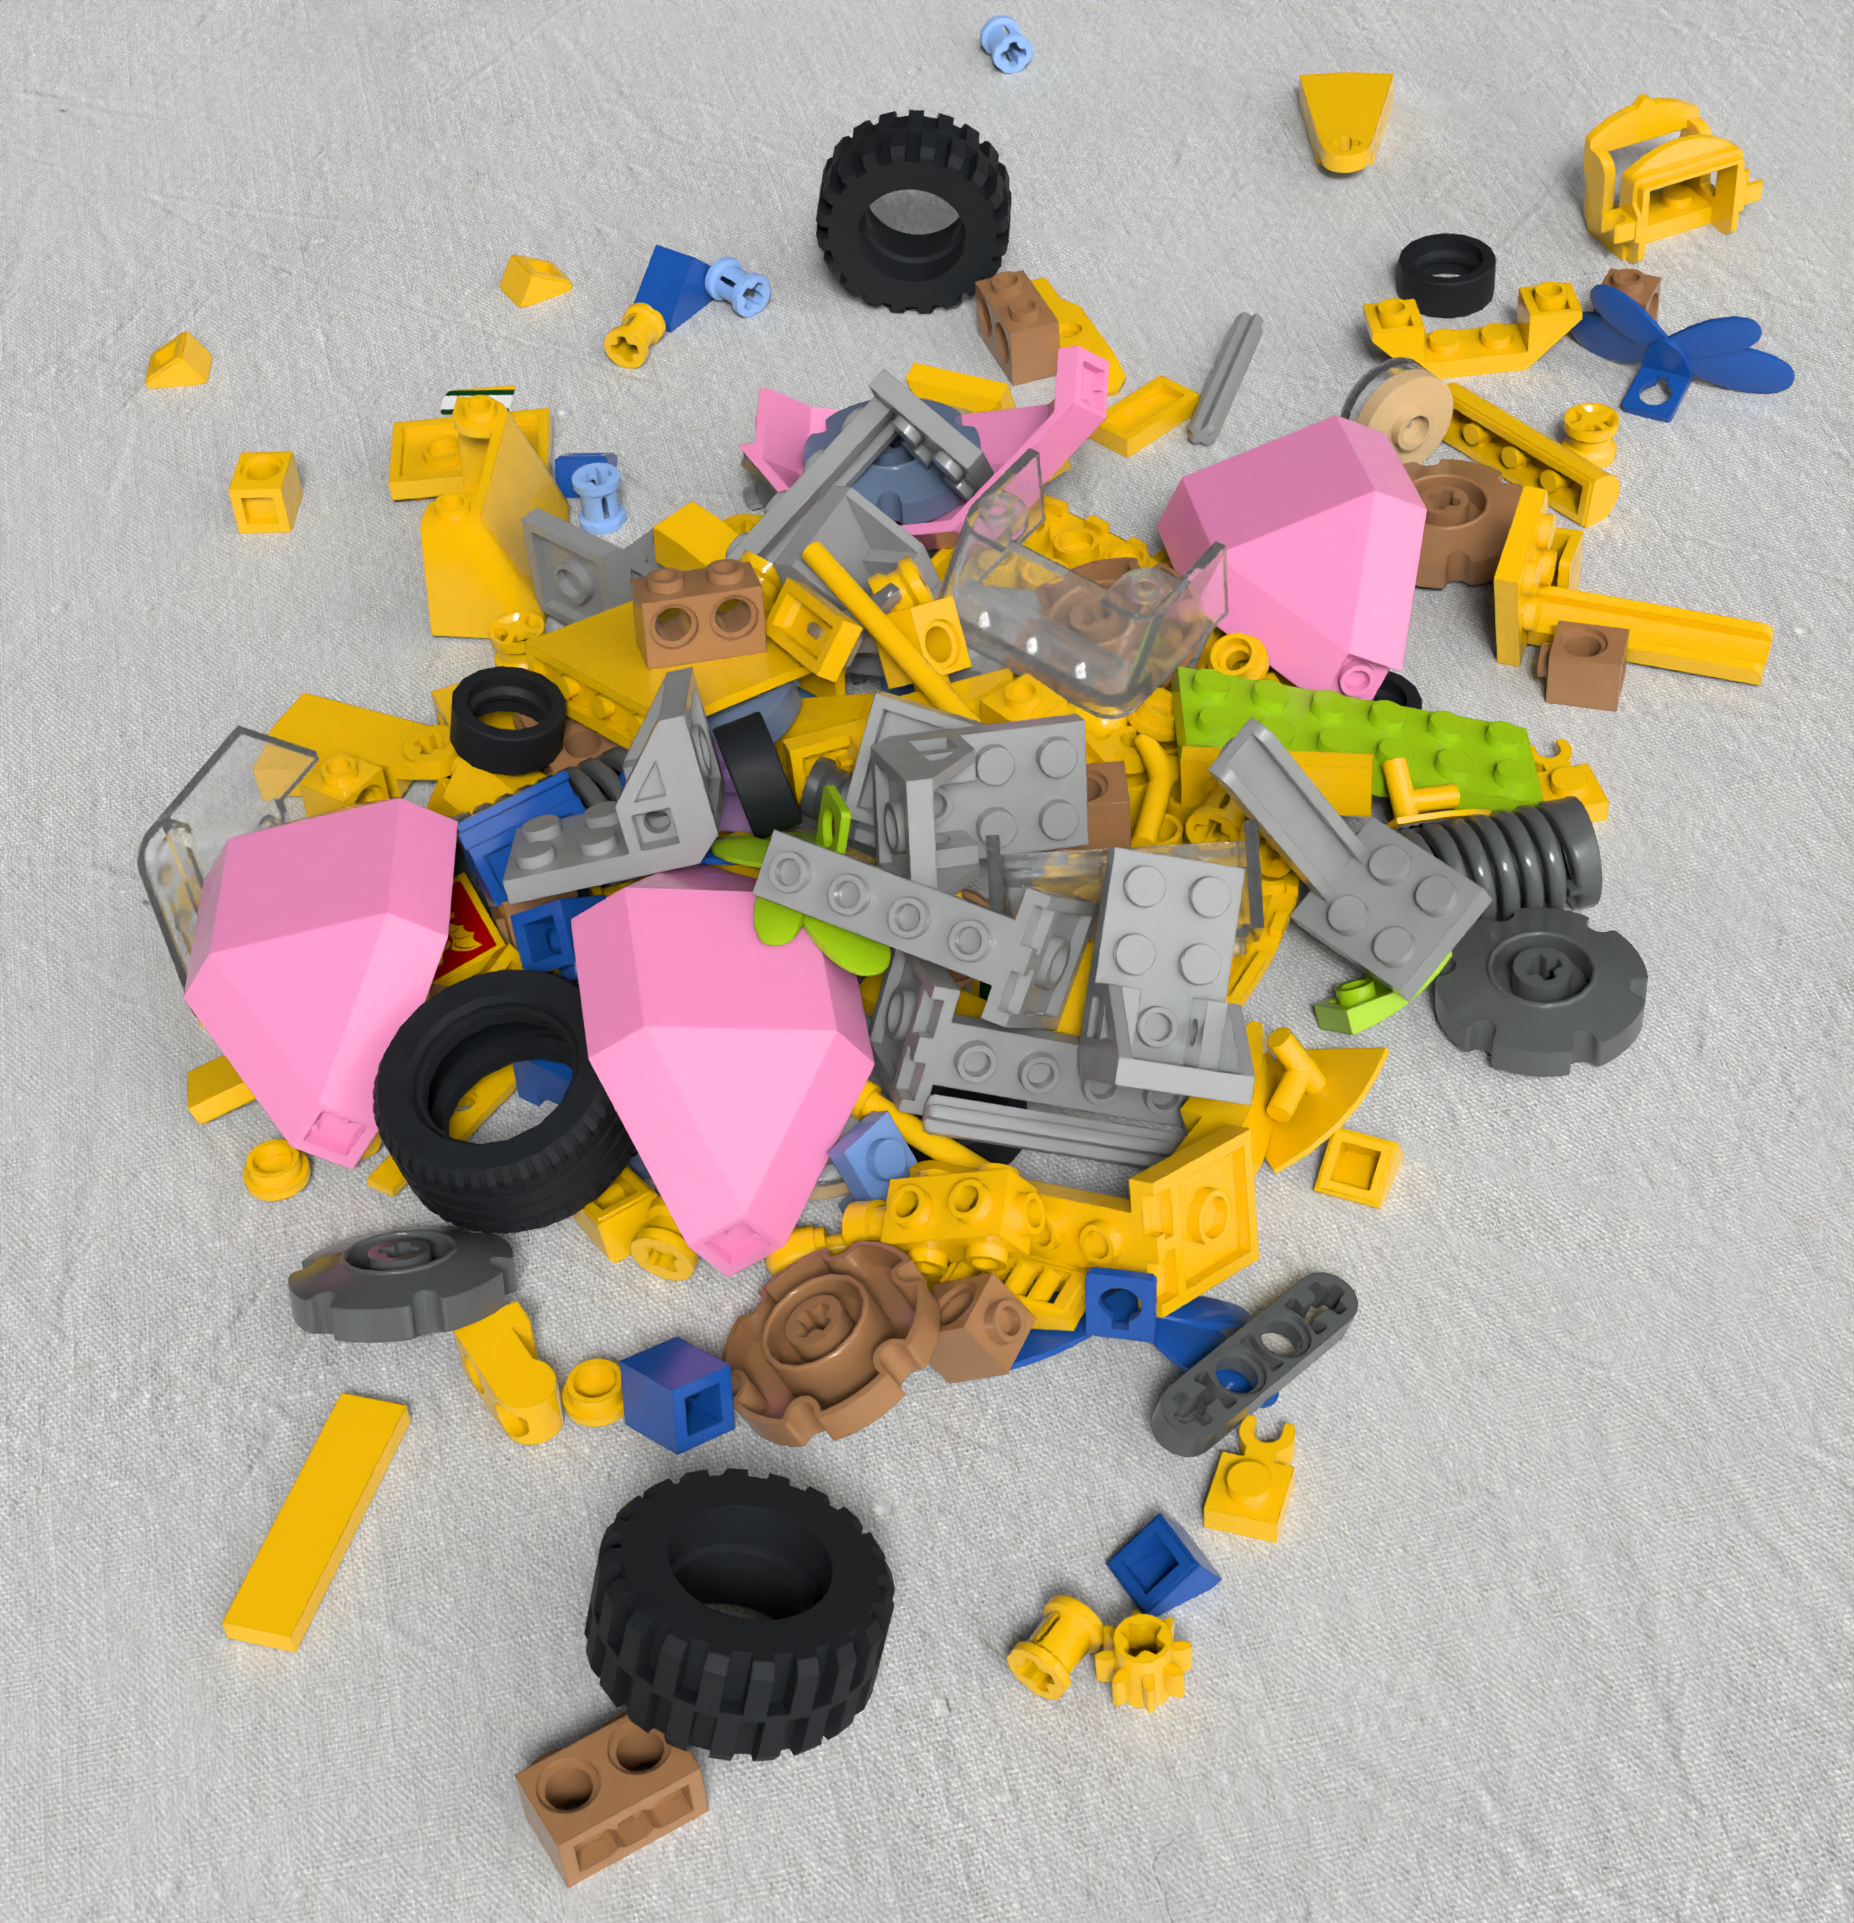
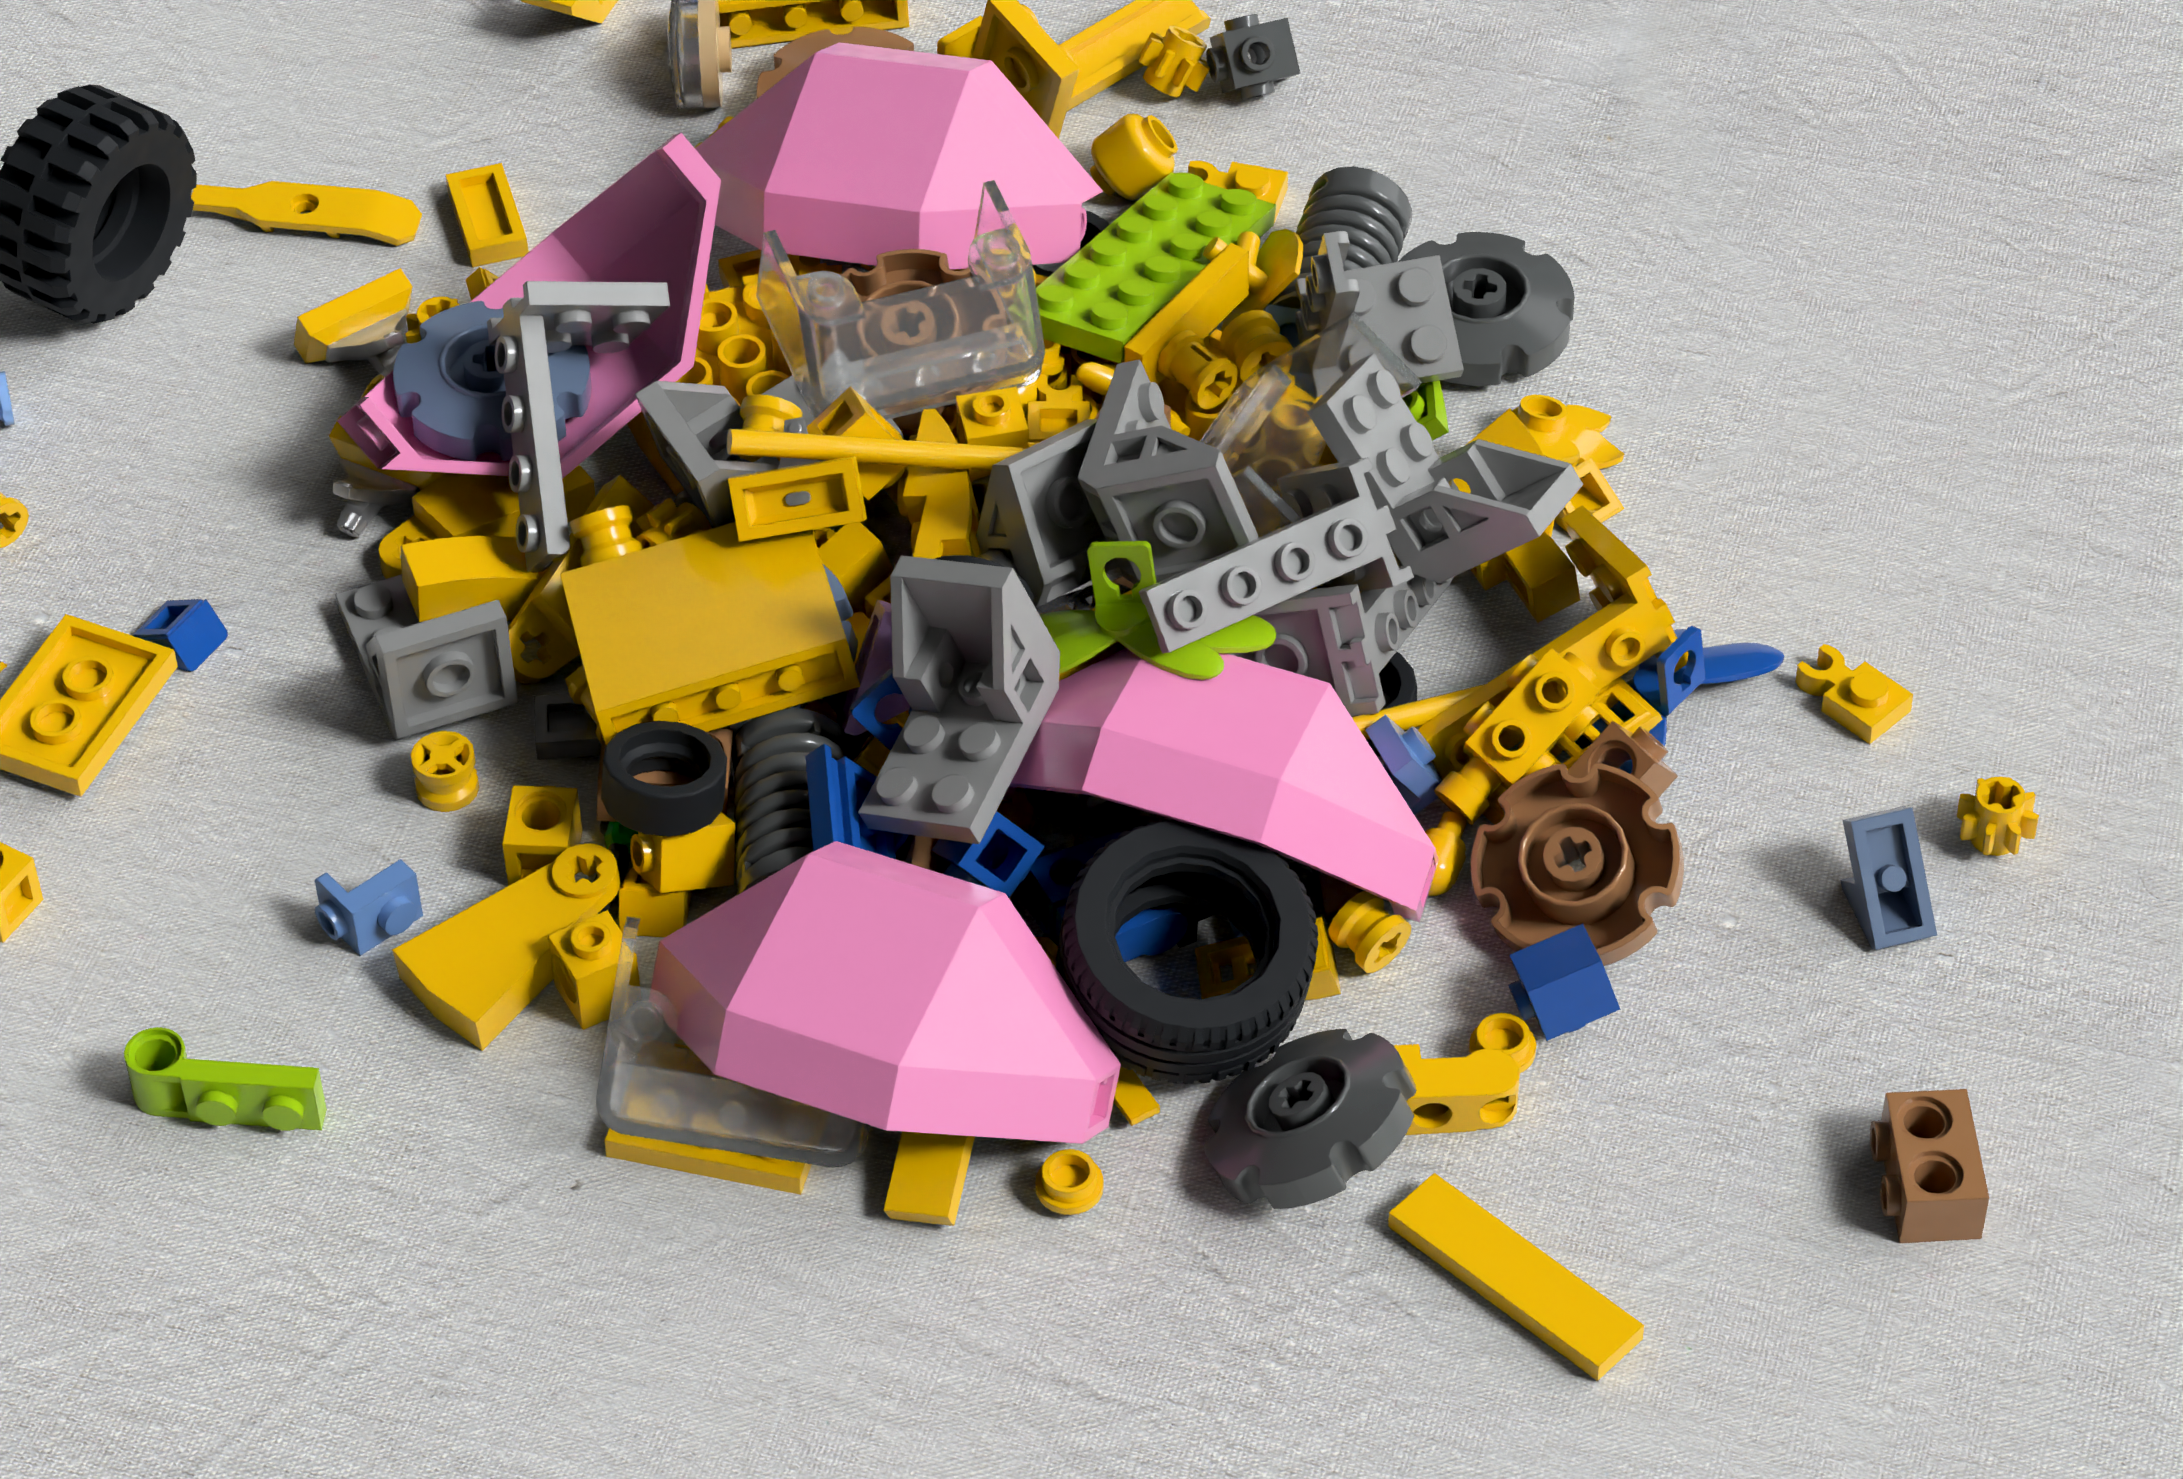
camera: 65 degrees left, 5 degrees up
(130, 656) = (220, 1091): none -> lime plate
(352, 670) = (370, 911): none -> medium blue bracket
(476, 539) = (216, 676): yellow windscreen -> none
(599, 498) = (259, 622): light blue bush -> none
(698, 629) = (709, 564): medium nougat brick -> none
(727, 1677) = (1853, 1001): black tyre -> none
(982, 1598) = (1888, 878): none -> sand blue slope
(1017, 327) = (280, 232): medium nougat brick -> none
(1047, 1132) = (1442, 644): light grey axle -> none
(1056, 1647) = (1954, 860): yellow bush -> none
(1162, 1567) = (1903, 777): blue slope -> none
(1225, 379) = (486, 137): light grey axle -> none
(1252, 1359) = (1758, 635): dark grey beam -> none
(1432, 1120) = (1568, 431): none -> yellow plate
(1522, 693) = (1132, 156): none -> yellow head
(1585, 665) = (1113, 92): medium nougat brick -> none
(1671, 672) = (1174, 61): none -> yellow gear
(1723, 712) = (1270, 52): none -> dark grey brick

